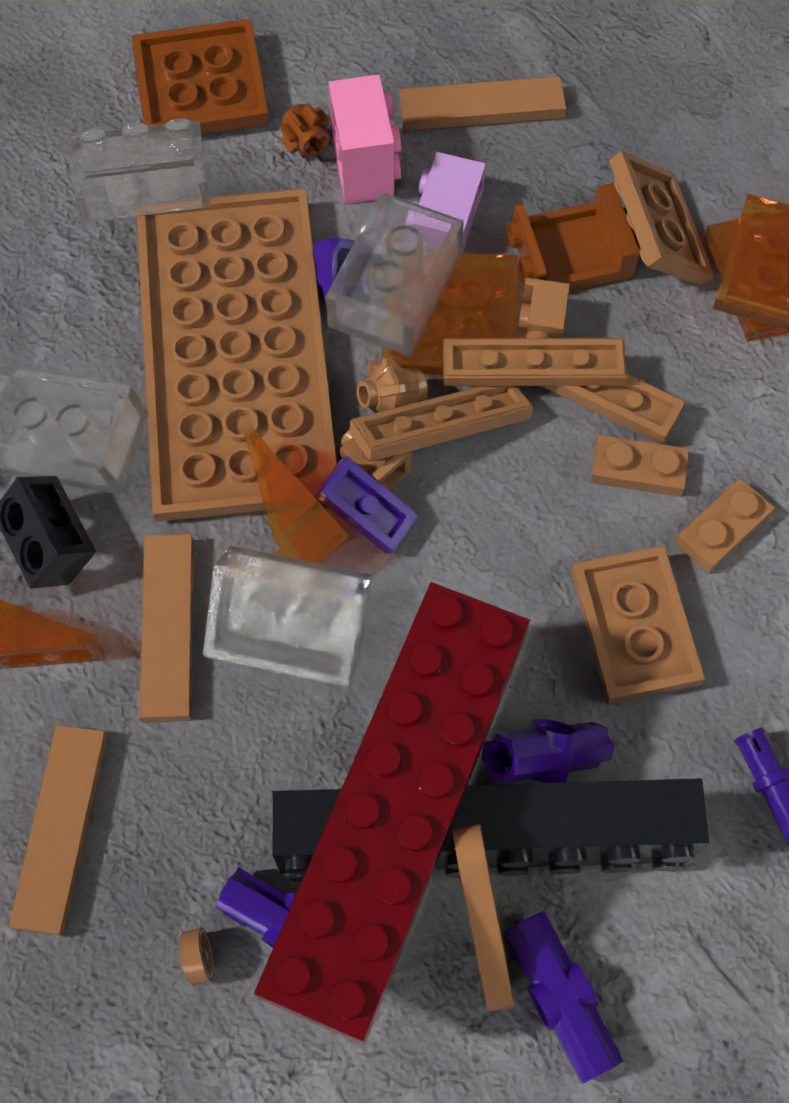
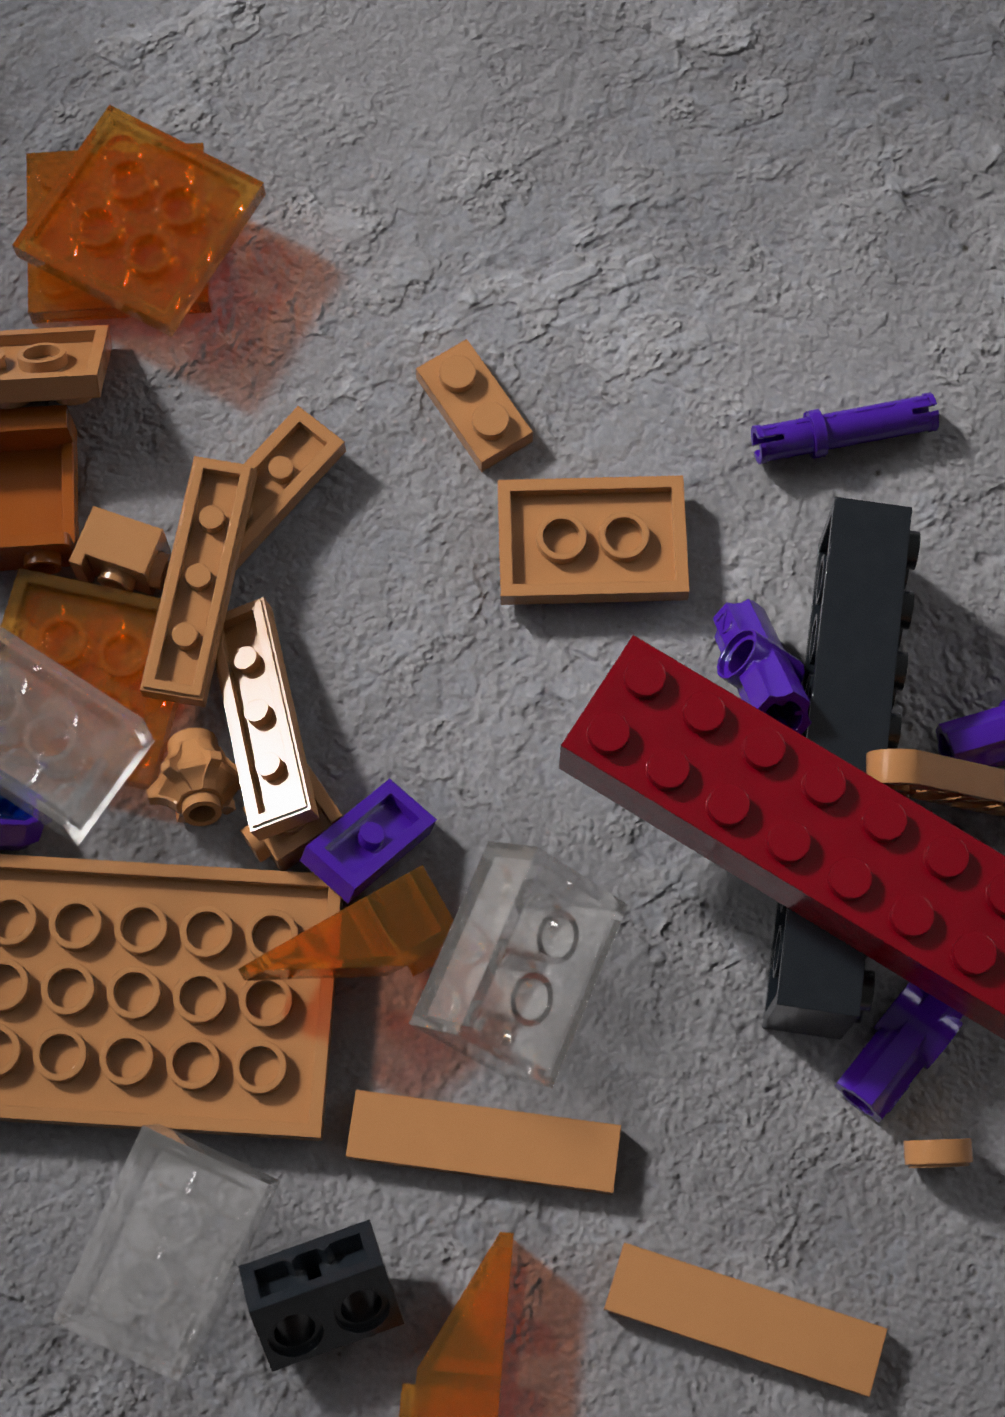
camera: 80 degrees left, 5 degrees up
(639, 465) = (369, 487): medium nougat plate -> none

